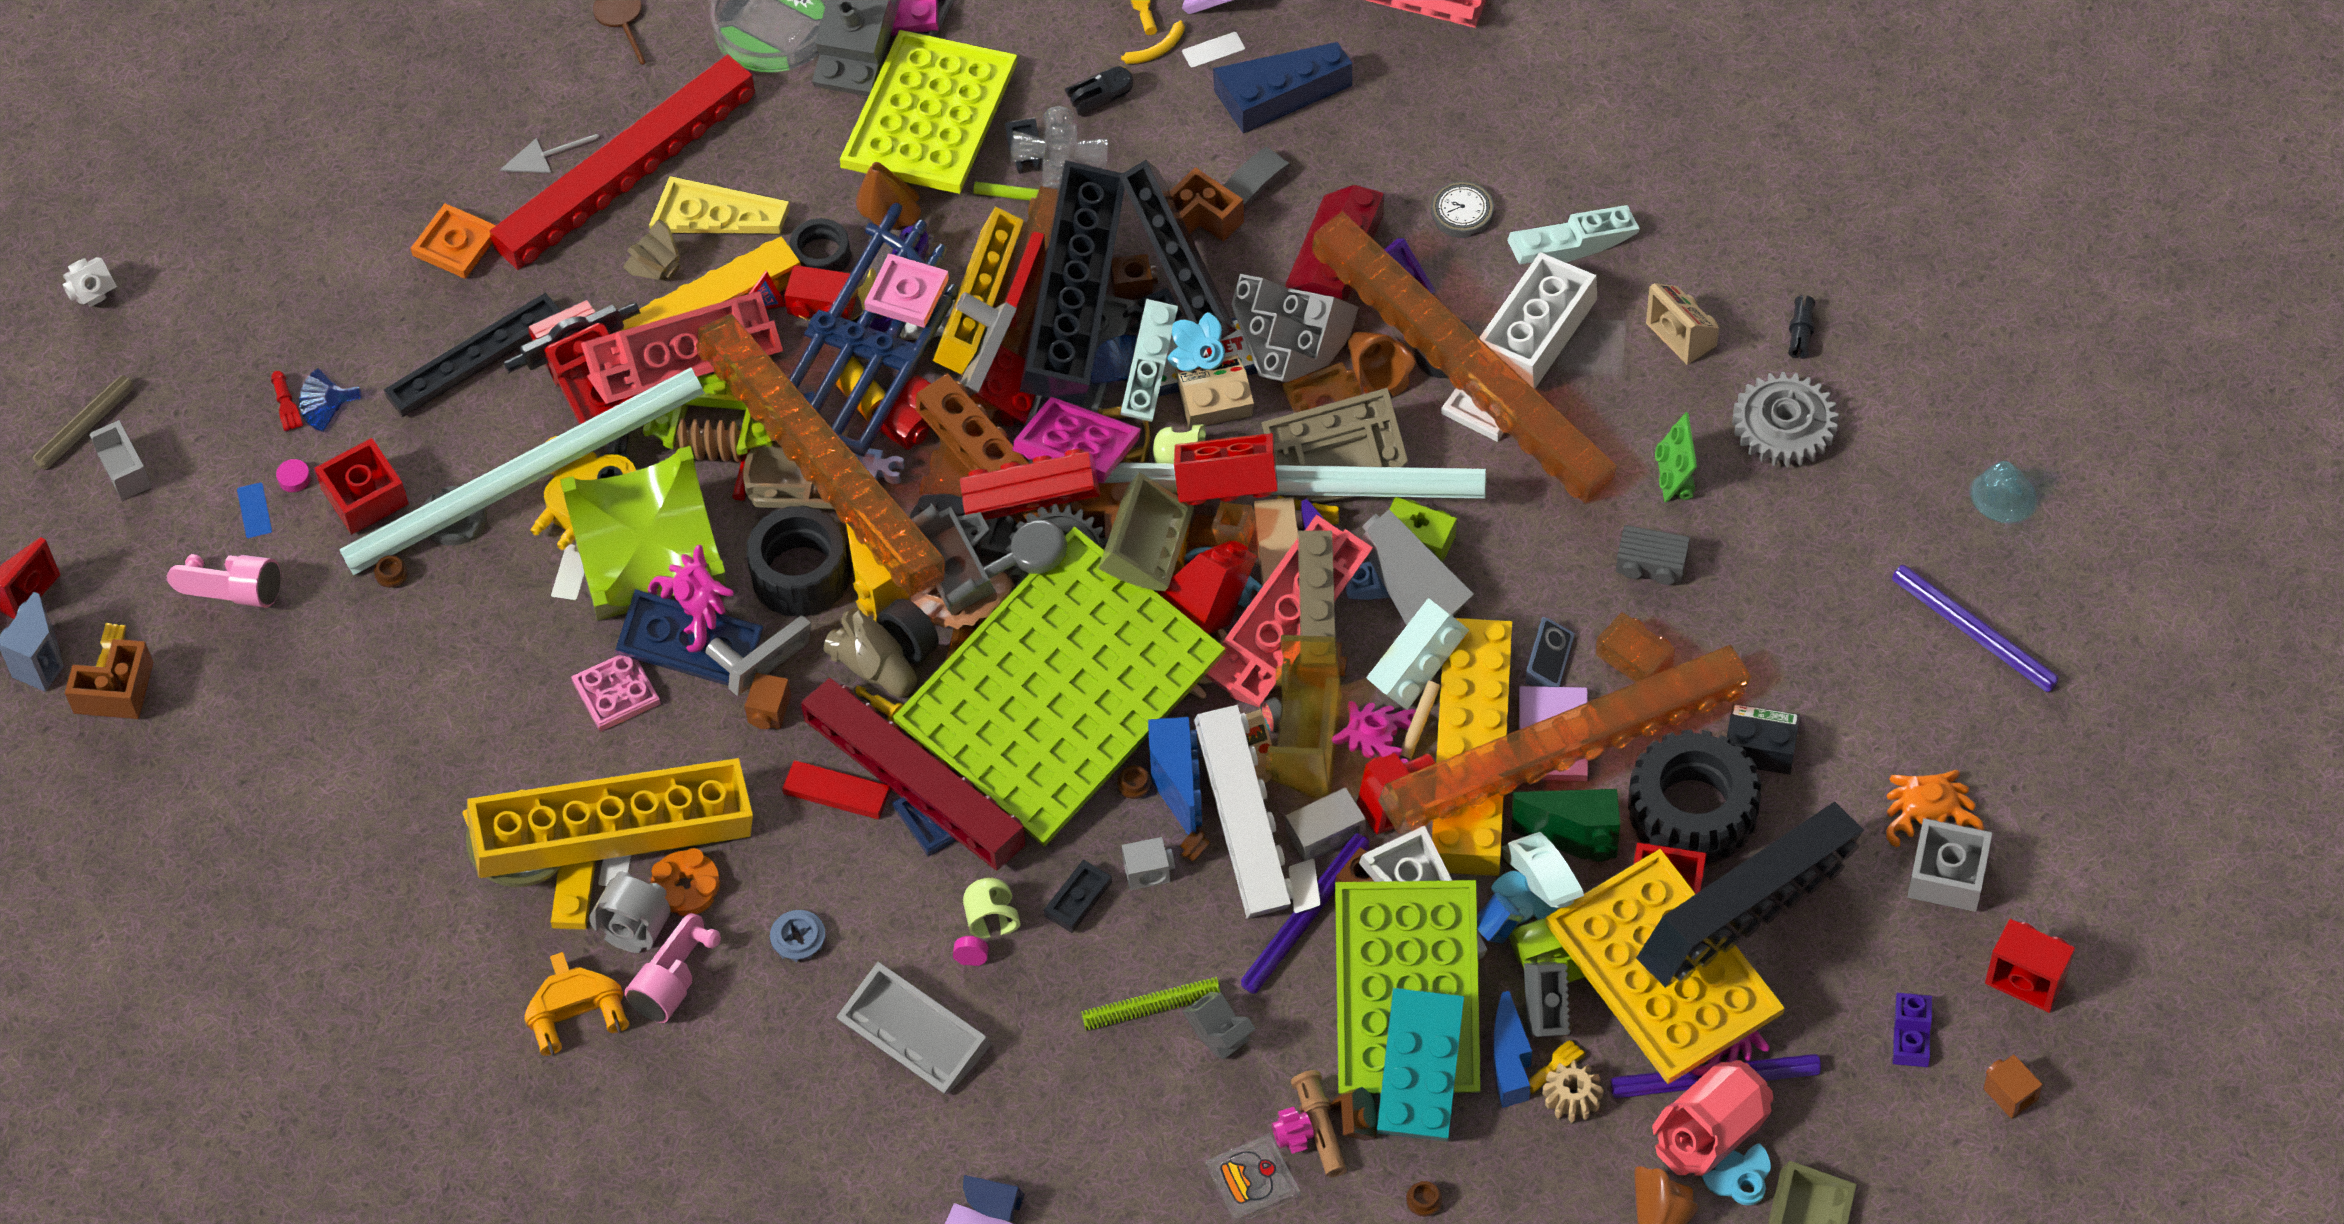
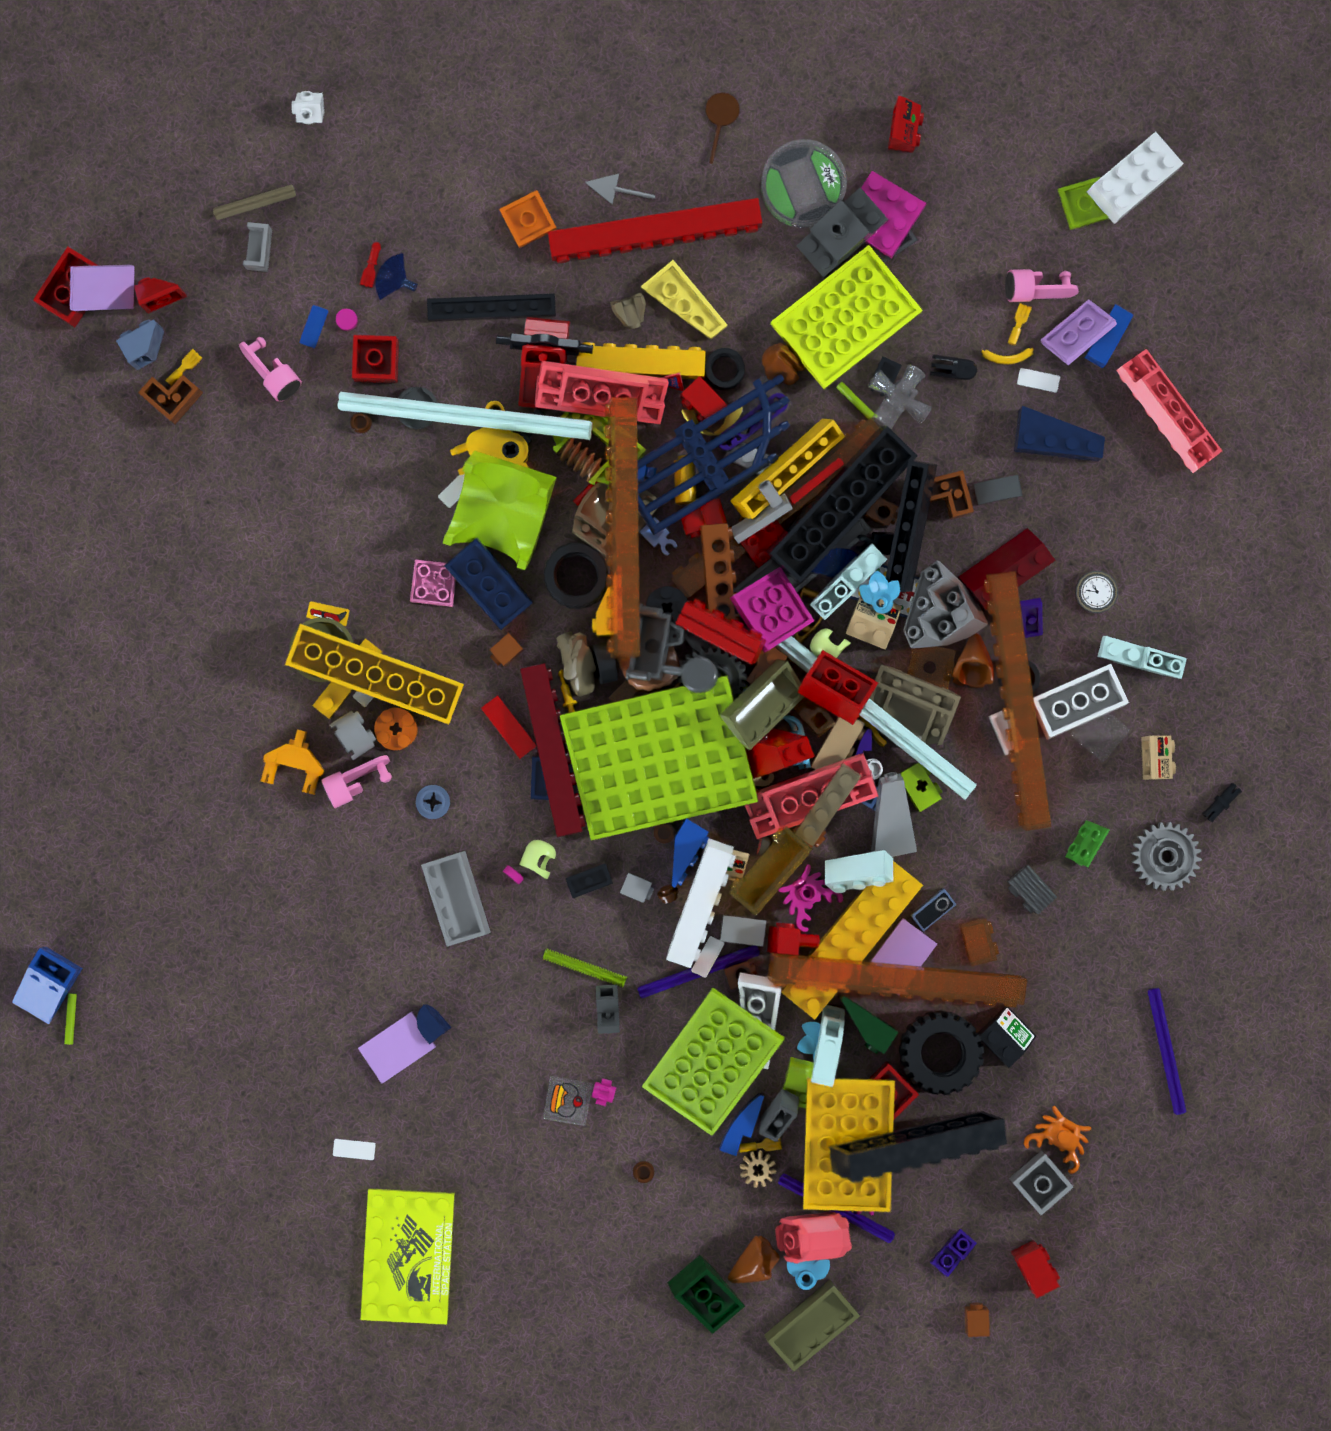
camera: 25 degrees right, 30 degrees up
(696, 594) = (502, 567): dark pink animal -> none
(763, 658) = (503, 627): light grey piece -> none
(906, 290) = (745, 445): bright pink plate -> none
(1317, 1108) = (623, 1087): medium nougat pin -> none
(1357, 1113) = (642, 1105): plate -> none
(1419, 719) = (835, 904): tan piece -> none
(1420, 1064) = (688, 1109): teal brick -> none
(1498, 918) = (785, 1057): blue slope -> none
(2003, 494) = (1246, 981): clear light blue hat -> none

